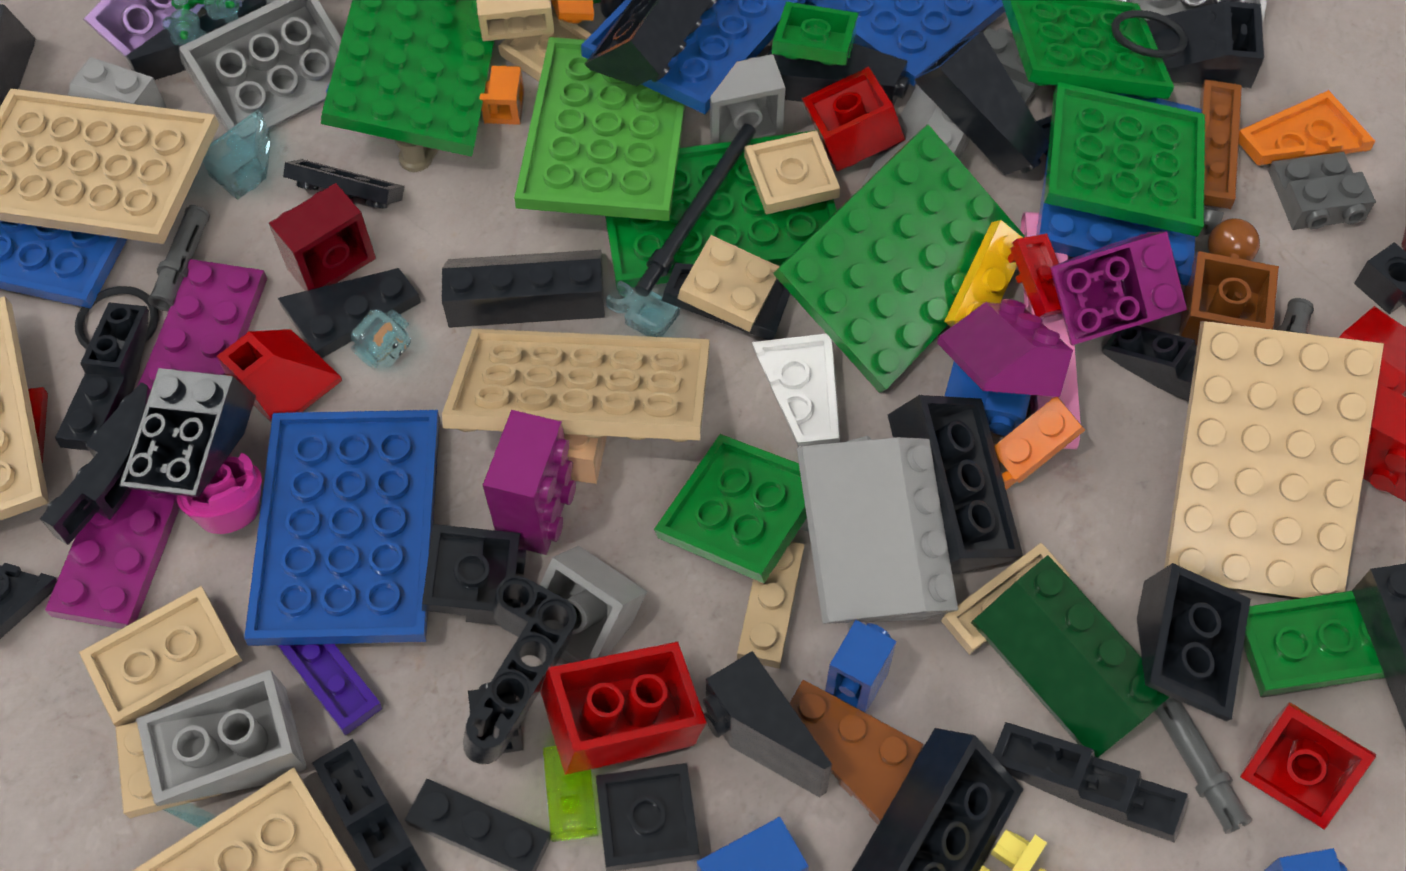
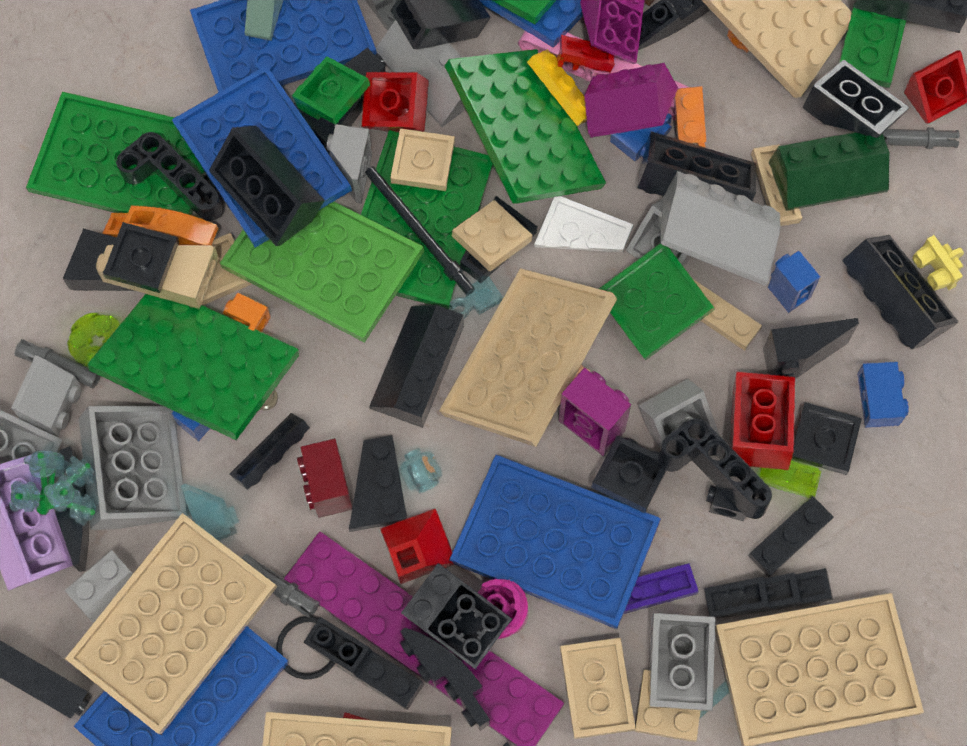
camera: 65 degrees left, 10 degrees up
(863, 751) = (833, 302): dark orange wing -> none
(1091, 782) = (901, 198): black slope -> none

